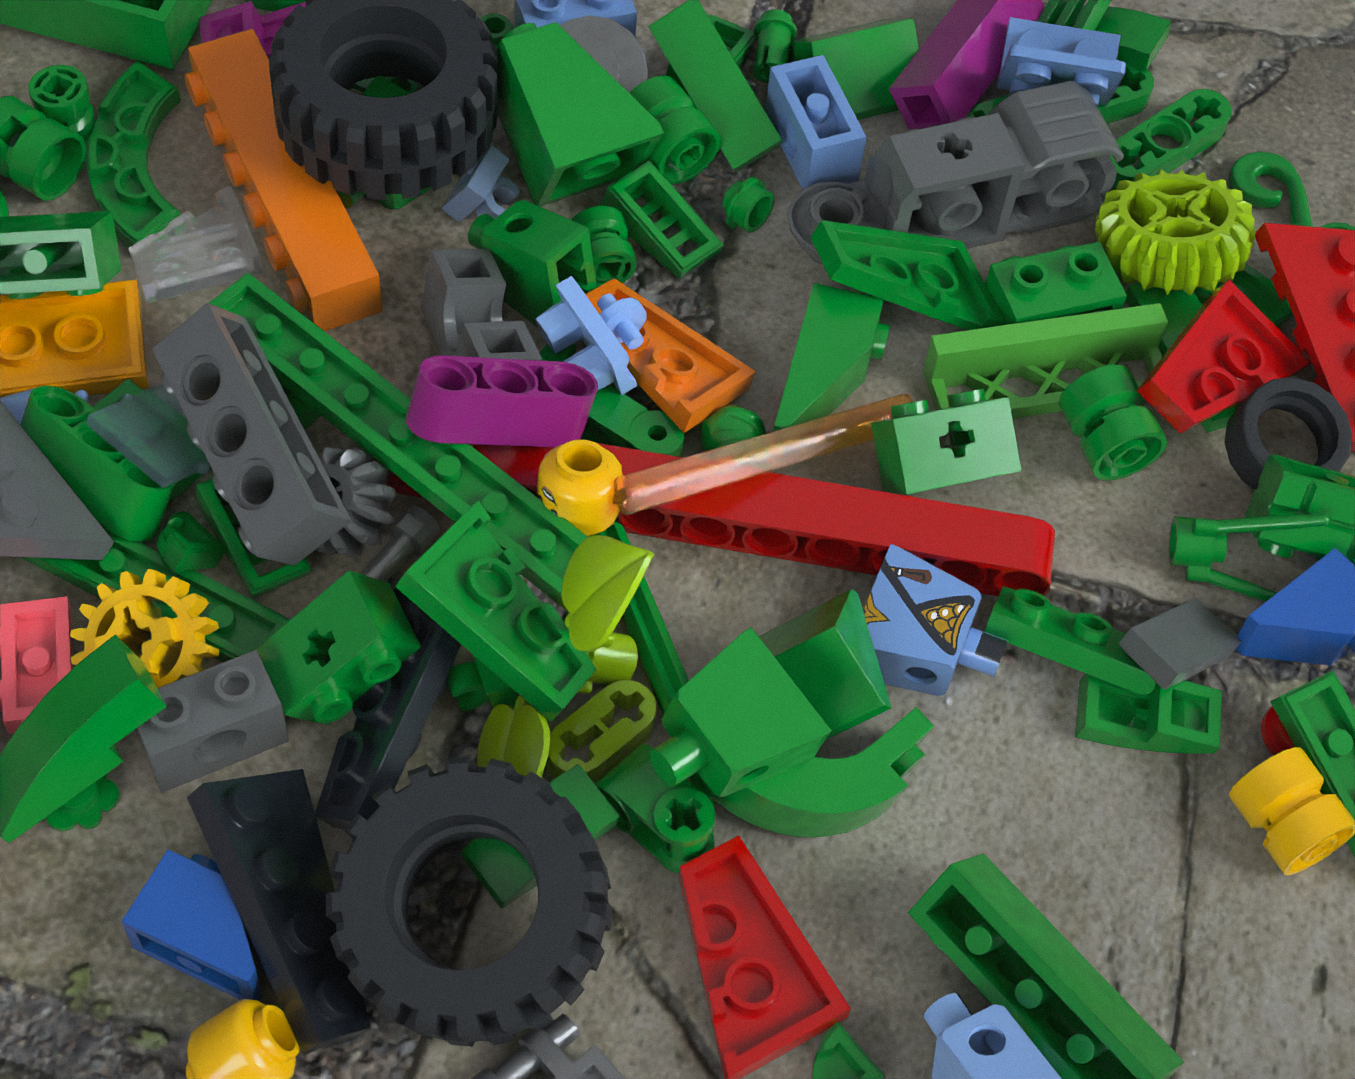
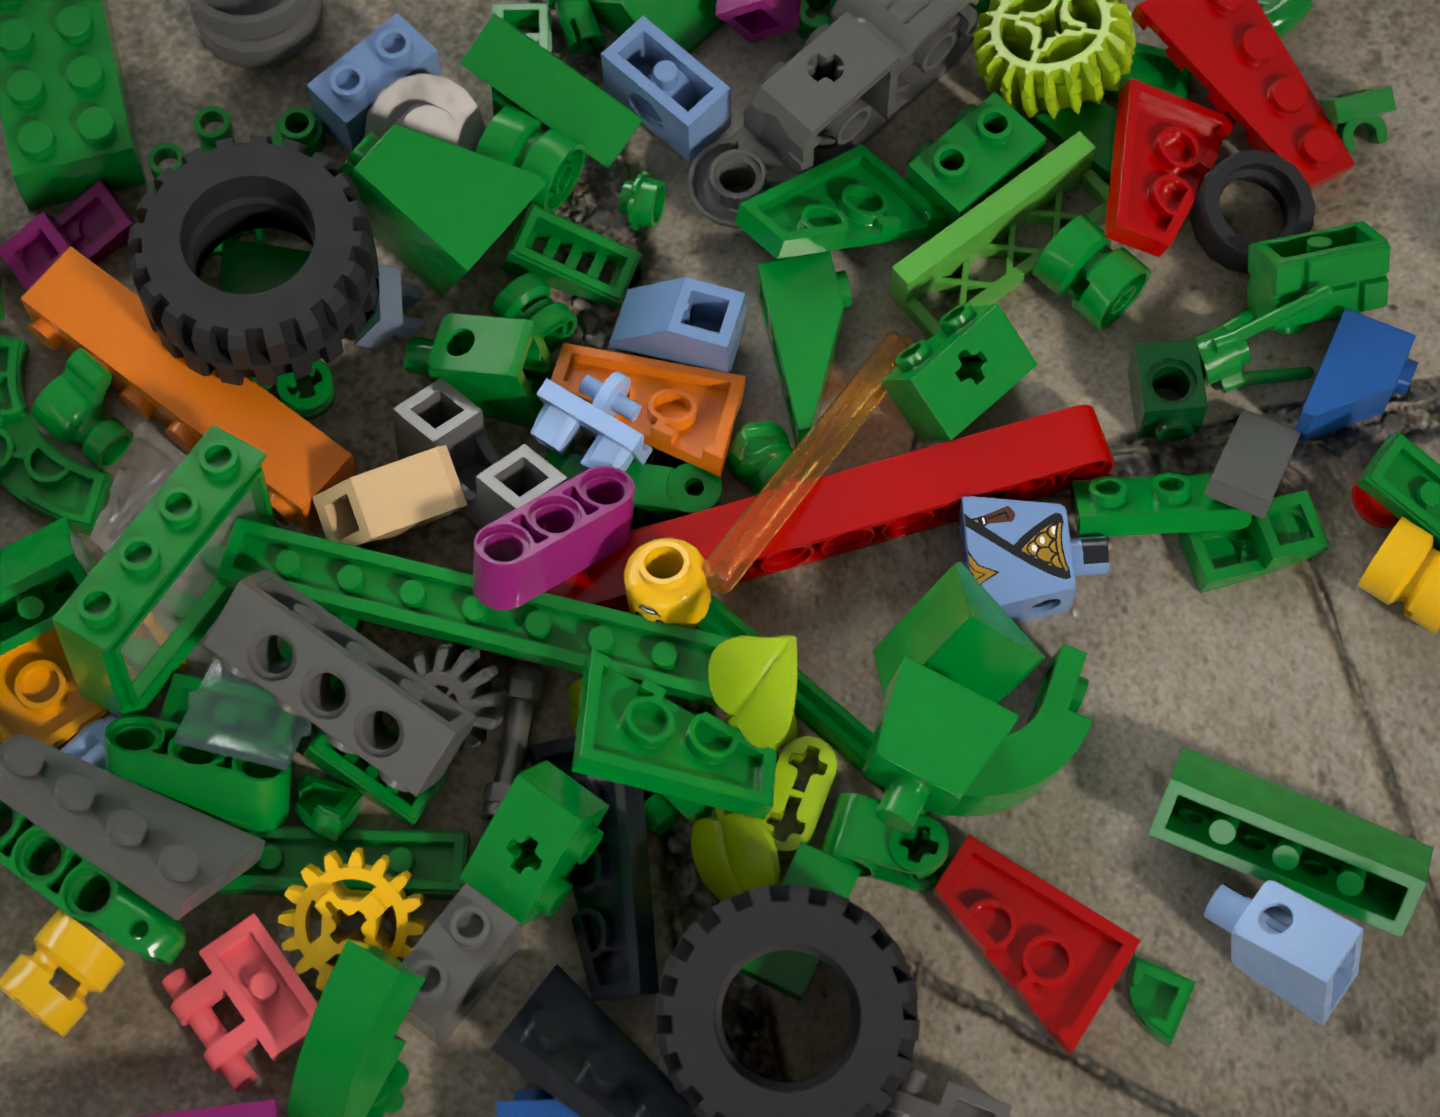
camera: 20 degrees left, 10 degrees up
(130, 286) = (159, 581): none -> green window
(182, 155) = (75, 411): none -> green piece
(388, 320) = (391, 500): none -> tan slope
(393, 229) = (315, 405): none -> green bush
(727, 306) = (682, 323): none -> medium blue slope
(1137, 527) = (1171, 366): none -> dark green brick

